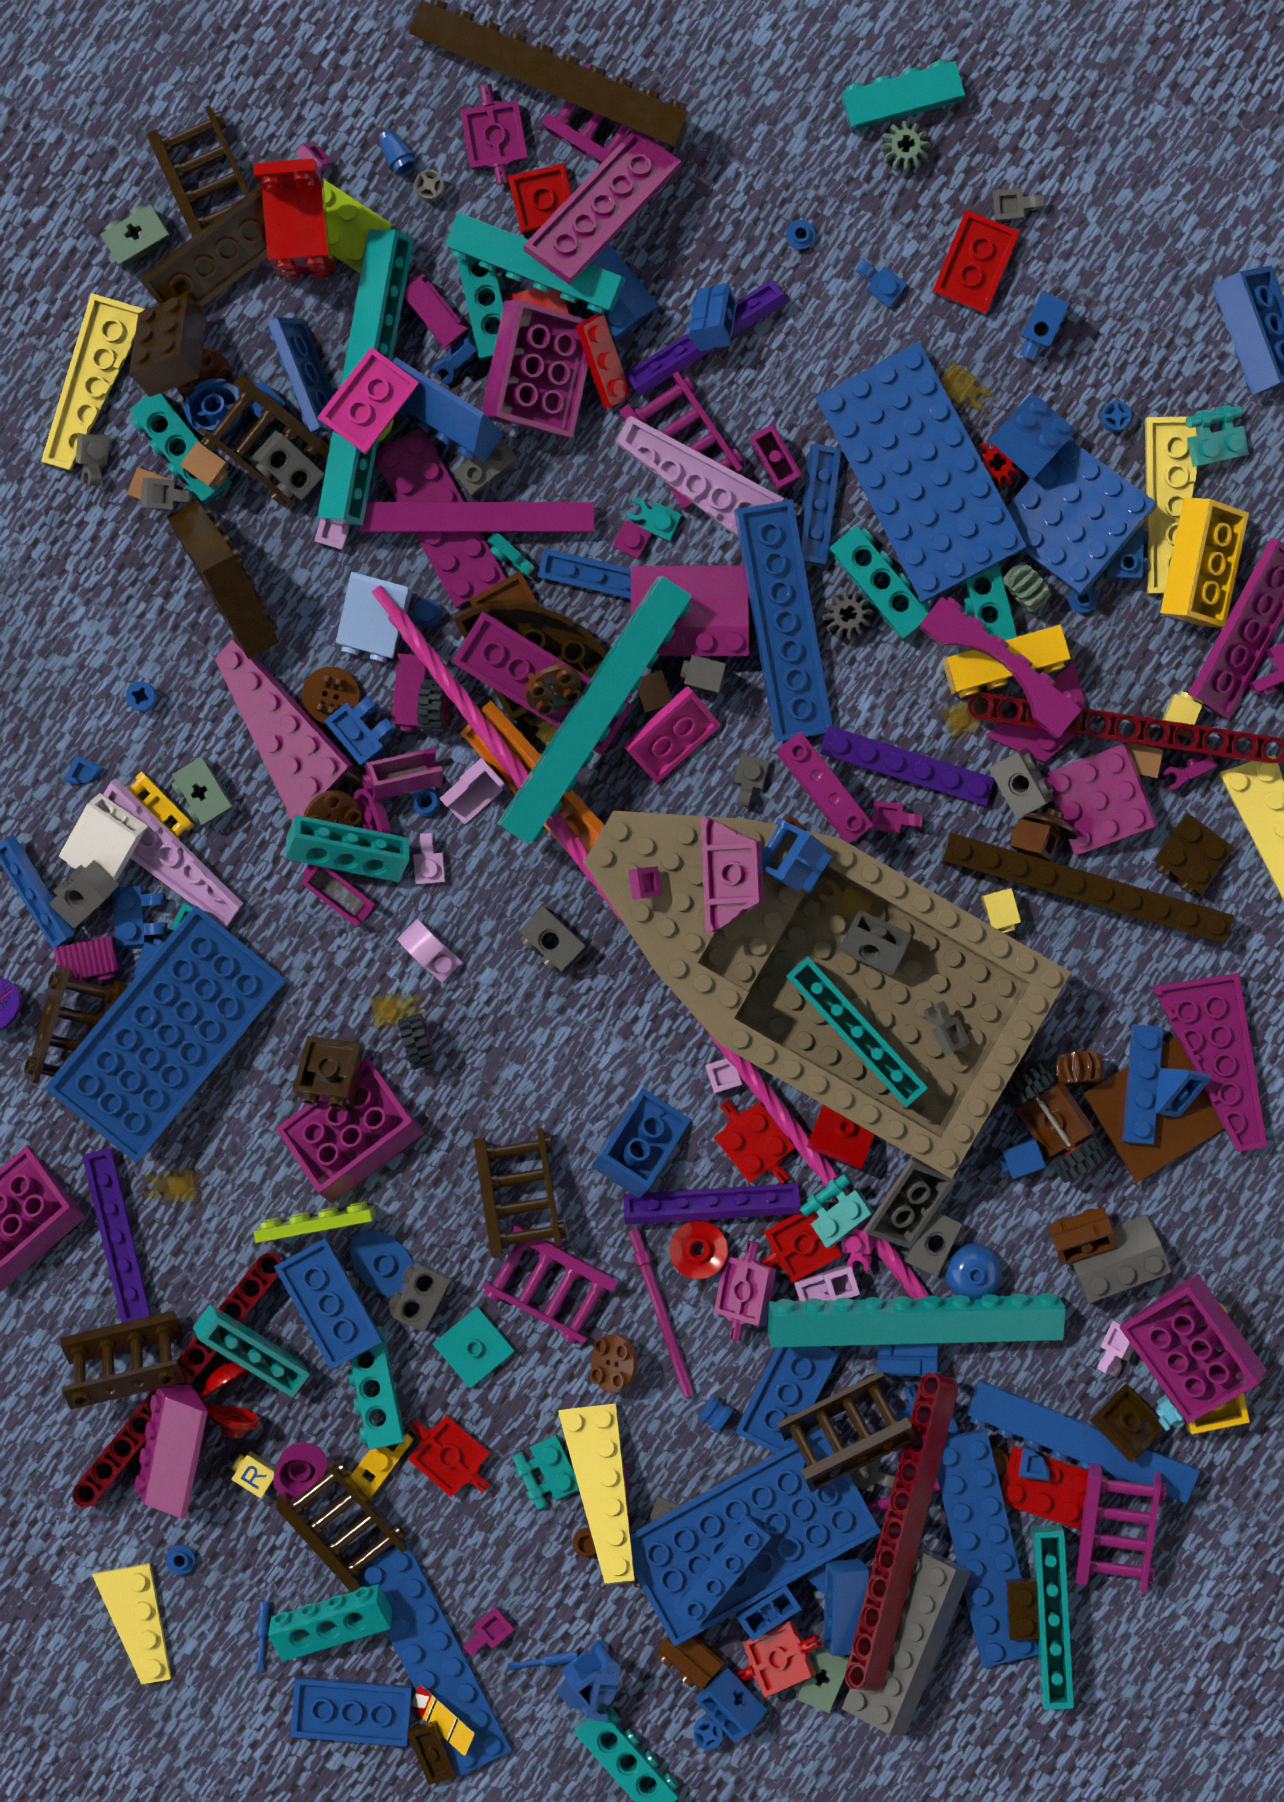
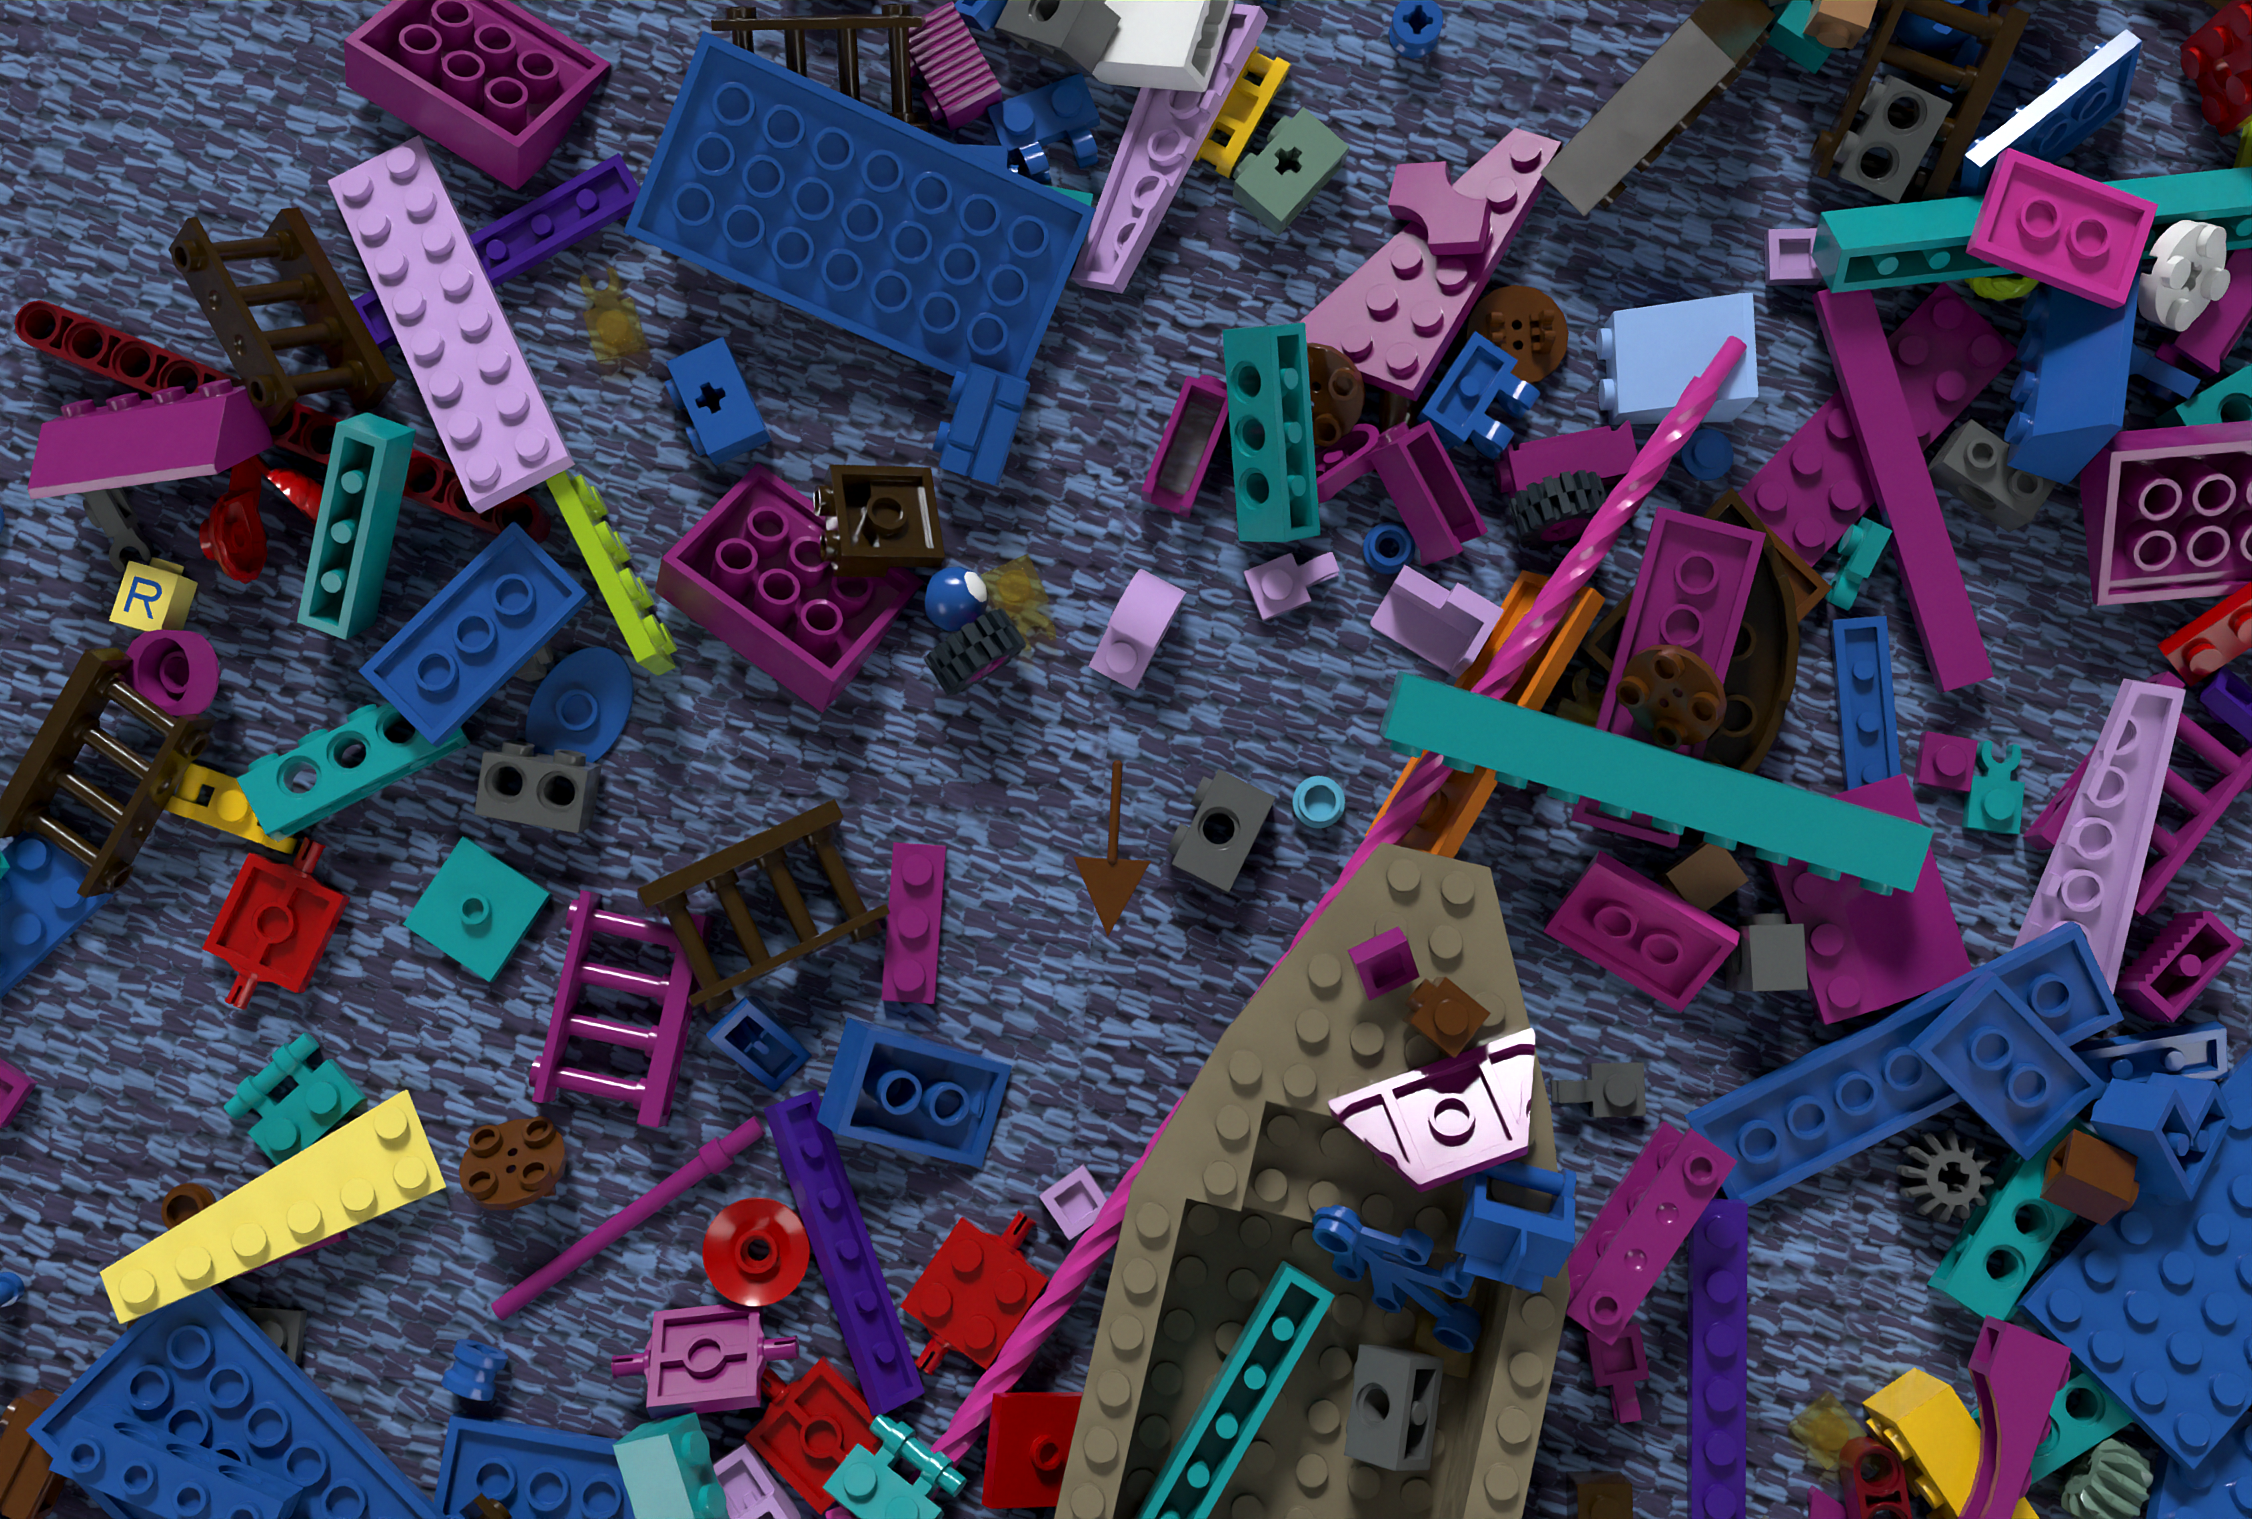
camera: 70 degrees right, 5 degrees down
(152, 1271) = (450, 325): none -> lavender plate
(208, 1481) = (118, 519): none -> dark grey plate
(220, 1136) = (710, 372): none -> blue brick
(239, 721) = (1452, 220): none -> magenta tile
(293, 1000) = (982, 422): none -> blue brick
(384, 1043) = (955, 598): none -> blue piece
(417, 348) = (2184, 275): none -> white plate
(551, 882) = (1318, 802): none -> medium azure plate
(551, 1116) = (914, 923): none -> magenta plate
(559, 1005) = (1111, 879): none -> reddish brown piece
(590, 1216) = (759, 1042): none -> blue slope
(679, 861) = (1444, 1015): none -> reddish brown brick
(797, 570) = (2007, 1065): none -> blue plate
(808, 922) = (1394, 1277): none -> blue plant
(855, 501) = (2168, 1125): none -> blue brick
(866, 548) = (2090, 1177): none -> reddish brown brick

